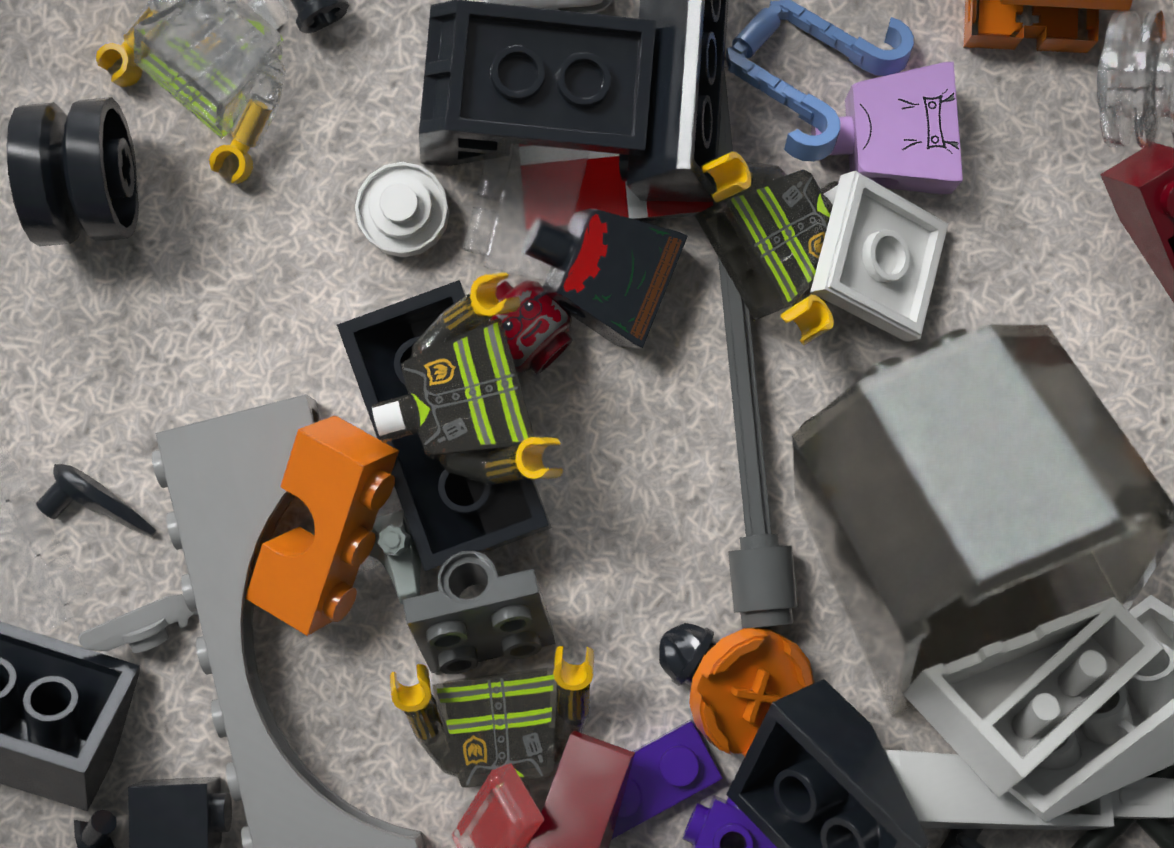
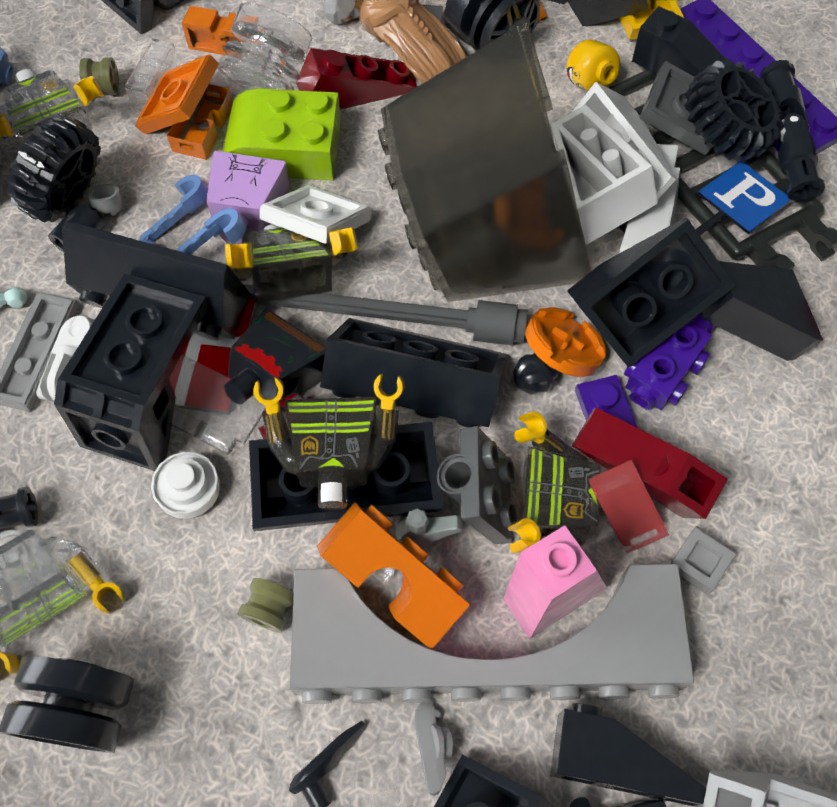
camera: 85 degrees left, 20 degrees down
(263, 369) = (266, 605): none -> olive wheel
(352, 749) = (551, 582): none -> bright pink slope
(654, 478) = (437, 373): none -> black slope
(1033, 157) = (287, 128): none -> lime brick

